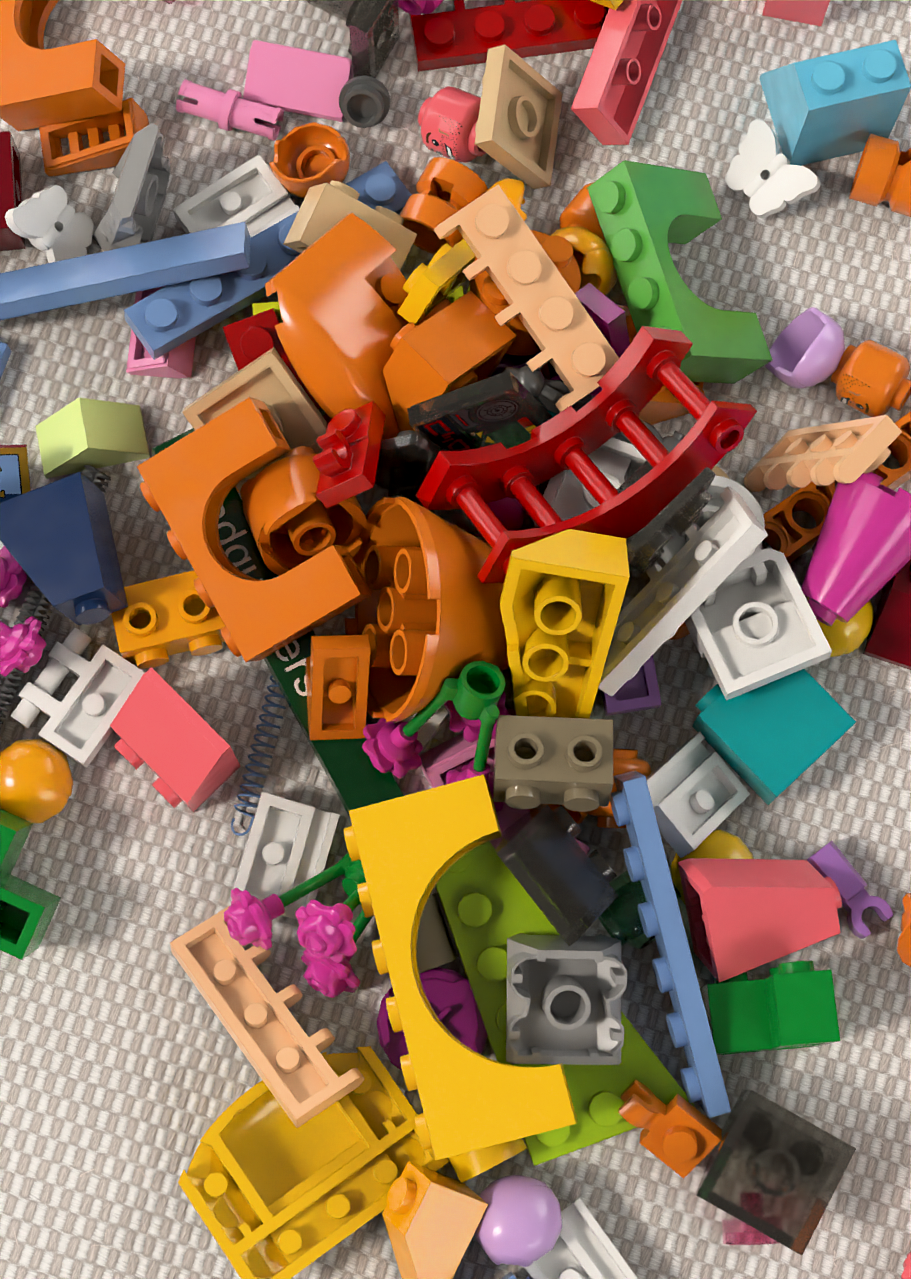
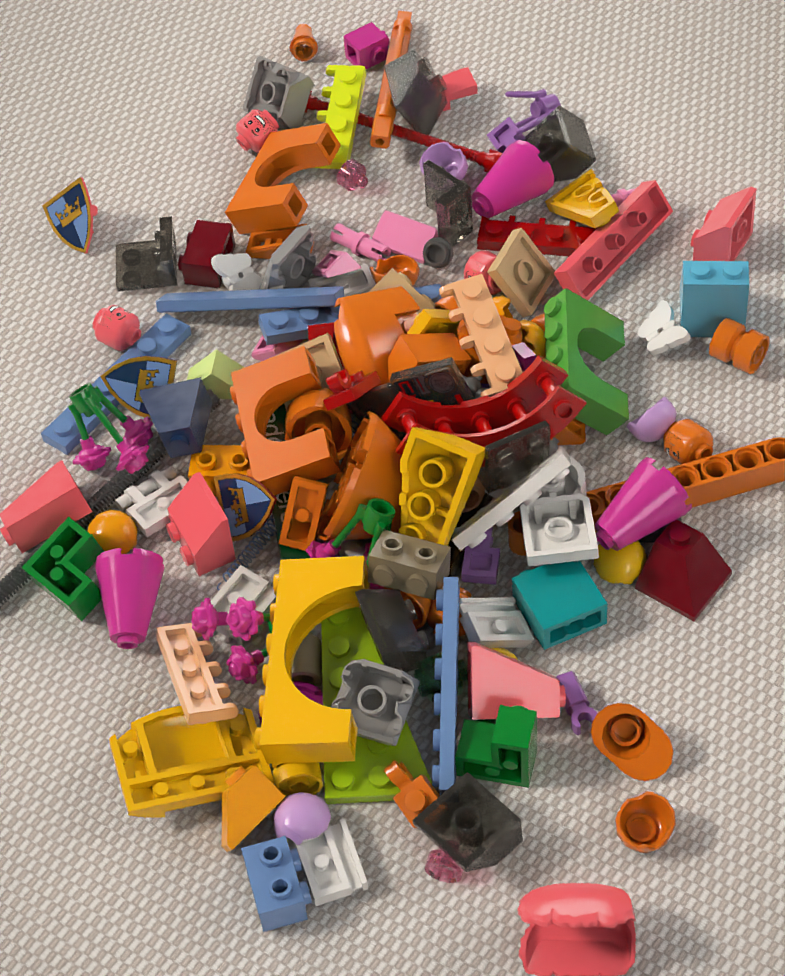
camera: 25 degrees right, 25 degrees down
(106, 902) = (129, 592): none -> dark pink cone
(210, 175) = (335, 264): none -> bright pink slope
(232, 690) = (244, 503): none -> shield
(824, 454) = (631, 449): light nougat hinge -> none

